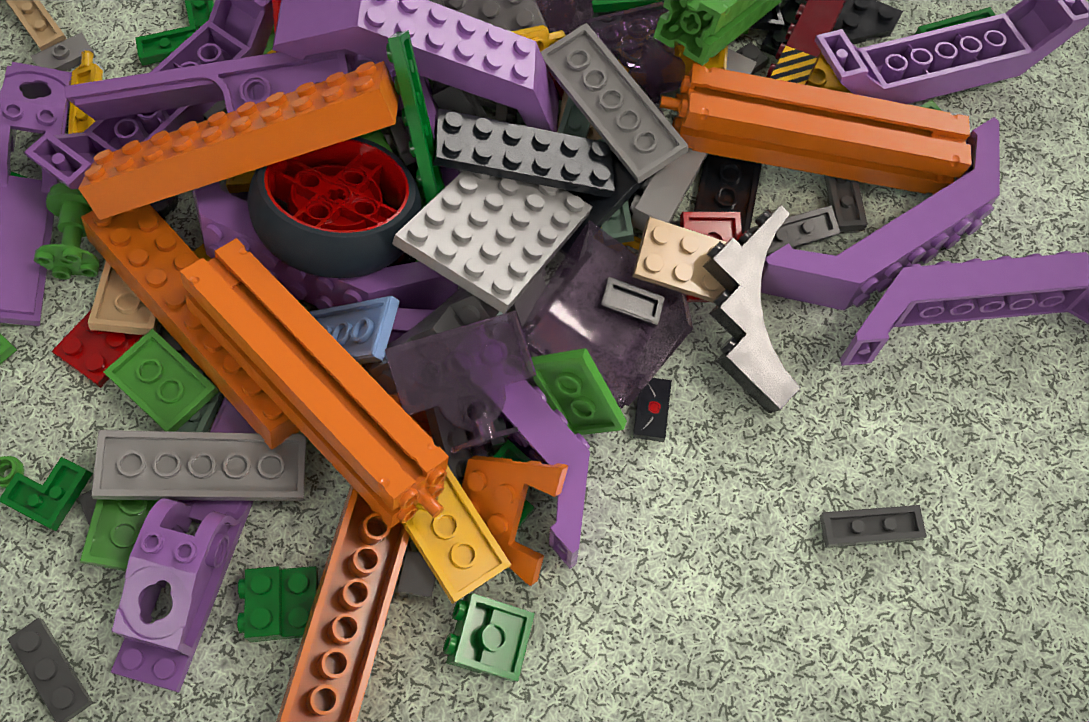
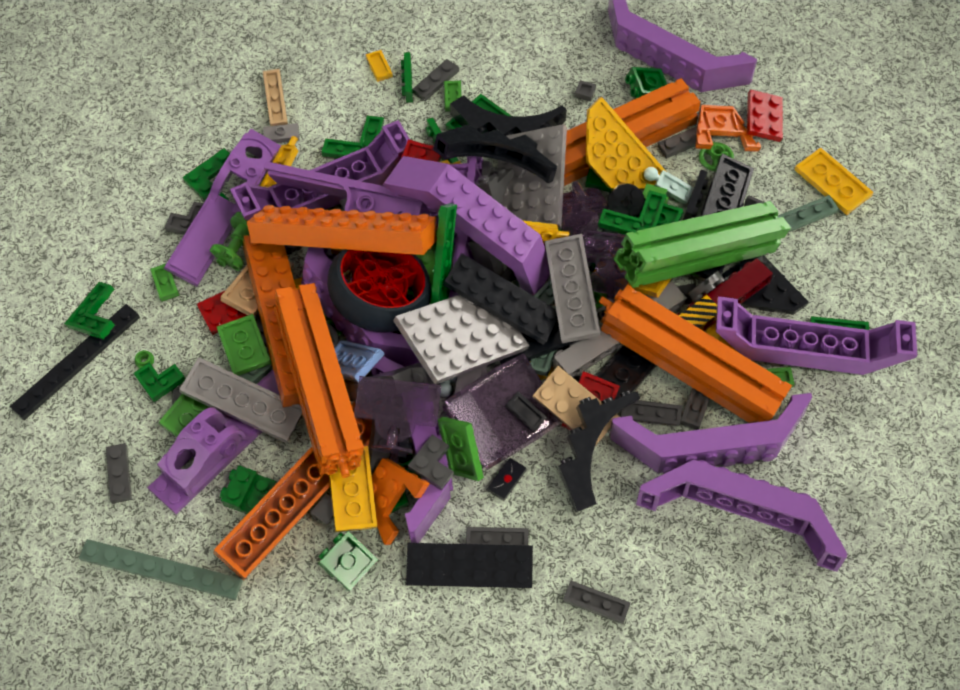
camera: 30 degrees right, 5 degrees down
(545, 440) = (427, 463): none -> dark grey plate
(670, 558) = (469, 565): none -> black plate
(687, 500) = (497, 536): none -> dark grey plate
(779, 30) = (706, 286): none -> dark grey plate

